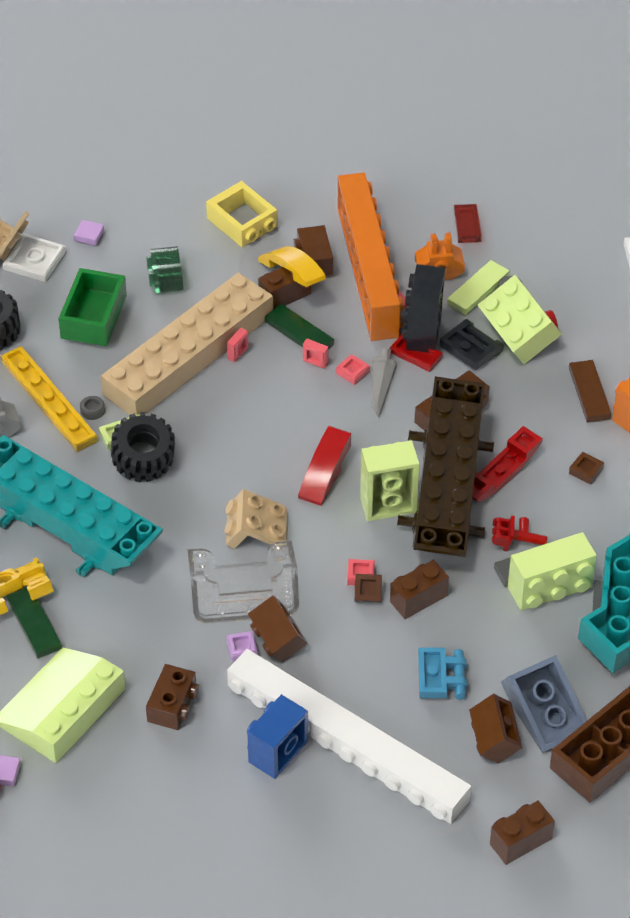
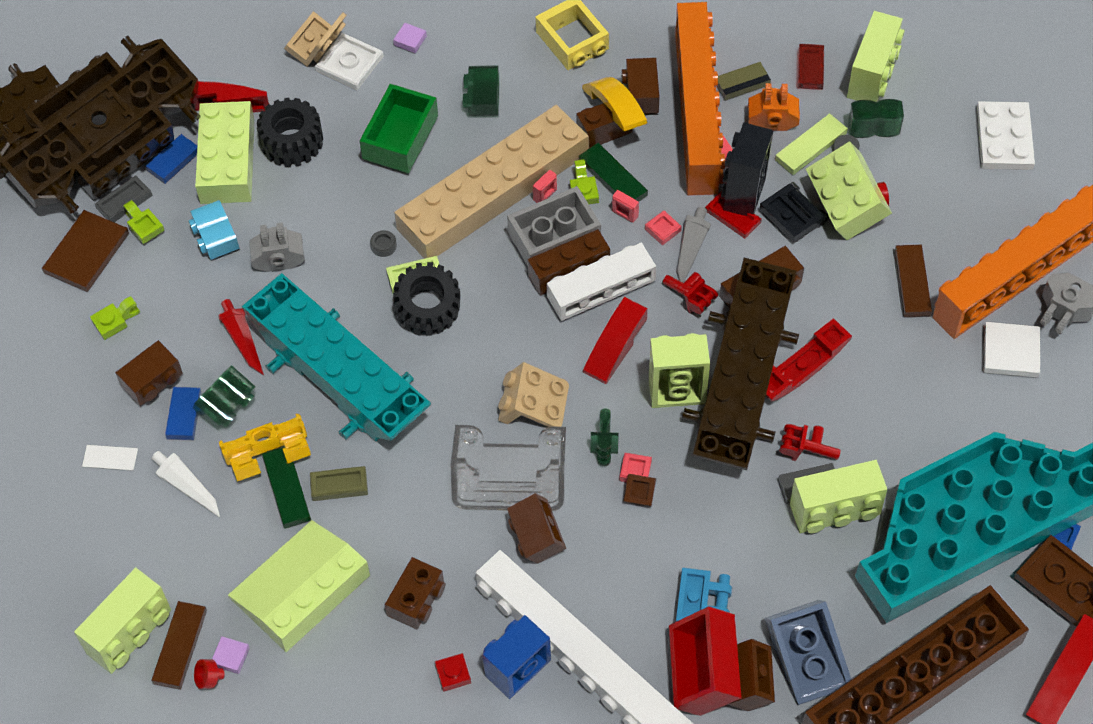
camera: 10 degrees right, 10 degrees up
(49, 399) = (340, 228): yellow tile -> none
(83, 614) = (338, 483): none -> olive tile
(218, 761) = (453, 672): none -> red plate
(239, 642) = (497, 539): lavender tile -> none
(252, 377) = (551, 223): none -> light grey brick
(270, 405) = (566, 259): none -> reddish brown brick
(272, 343) = (586, 184): none -> lime plate
(303, 417) = (601, 281): none -> white brick
(328, 551) = (604, 442): none -> clear green arm
(392, 417) = (695, 291): none -> red arm
(407, 240) = (743, 80): none -> olive tile
(419, 589) = (693, 498): reddish brown brick -> none
(452, 719) = (704, 661): none -> red piece
(525, 208) = (875, 57): none -> yellowish green brick
(534, 259) = (875, 118): none -> clear green brick
(586, 468) = (895, 372): reddish brown tile -> none

